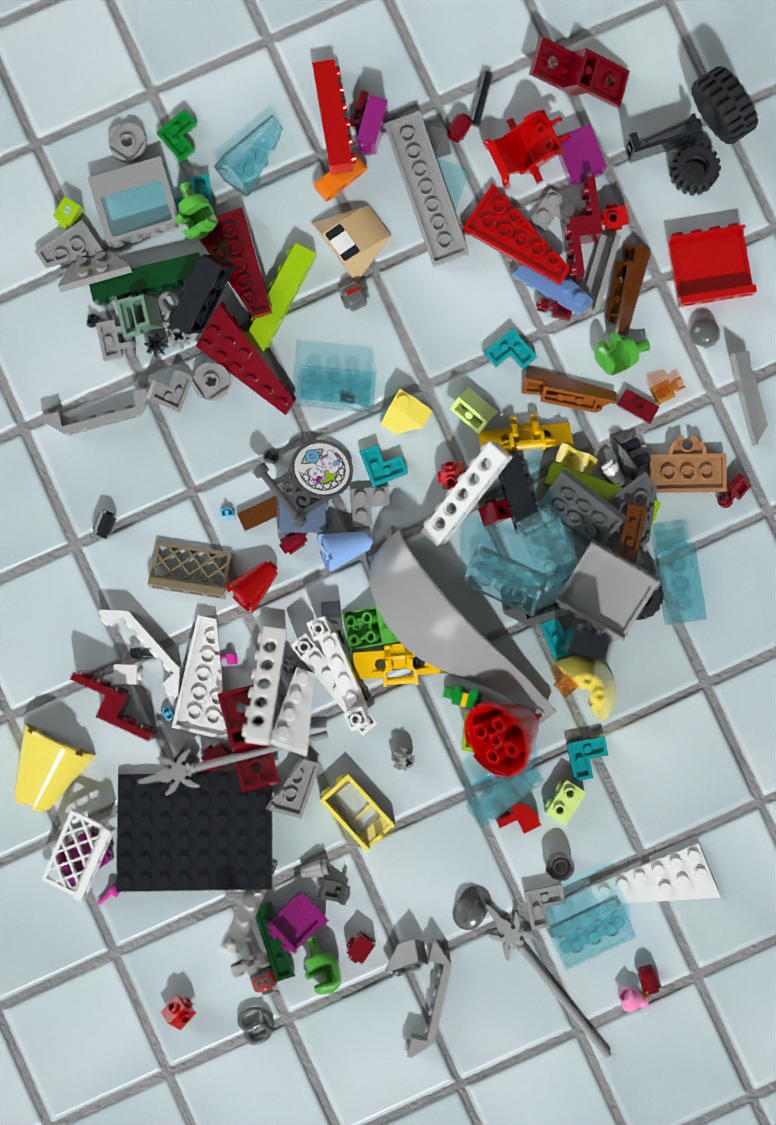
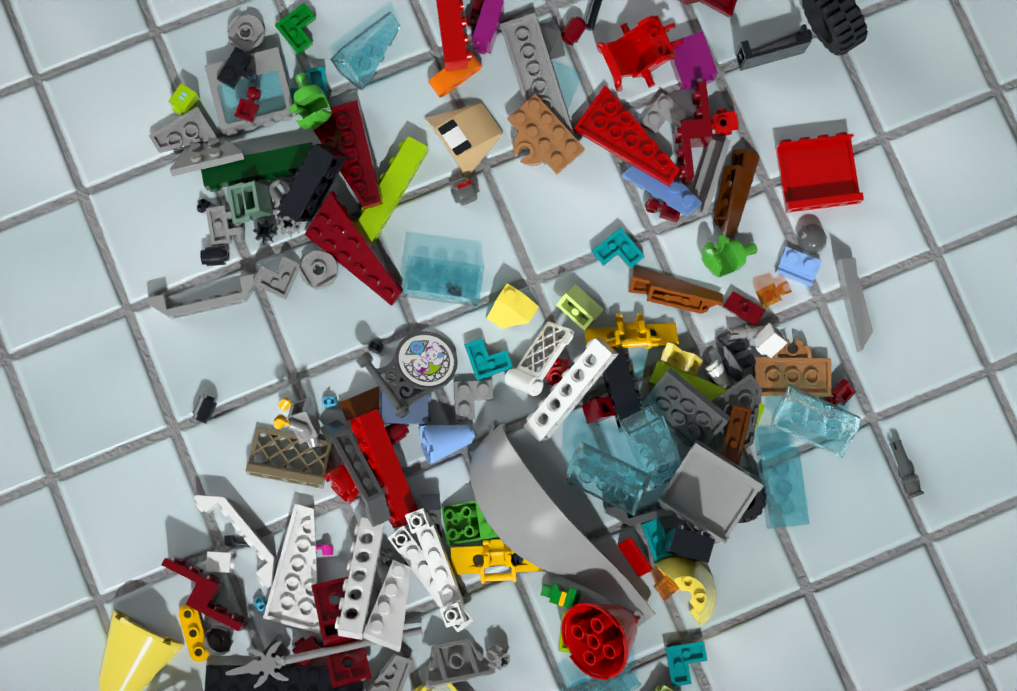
camera: 10 degrees left, 5 degrees down
(107, 371) = (214, 256): none -> black brick
(108, 752) = (187, 625): none -> yellow plate
(119, 179) = (236, 68): none -> black plate
(128, 751) = (217, 641): none -> dark grey hair
(132, 221) = (248, 109): none -> dark red plate
(200, 533) = (301, 420): none -> light grey torso
(260, 581) = (359, 470): none -> dark grey slope
(284, 576) = (385, 465): none -> red brick
(361, 765) = (455, 663): none -> light grey wing
(423, 483) = (528, 378): none -> white piece
(432, 238) = (543, 136): none -> medium nougat plate
(534, 656) = (635, 557): none -> red slope
(642, 430) = (744, 332): none -> light grey pin
(664, 437) = (770, 340): none -> white brick
(692, 361) = (798, 266): none -> light blue plate
(703, 156) = (814, 68): black tyre -> none
(711, 516) = (815, 421): none -> clear light blue brick

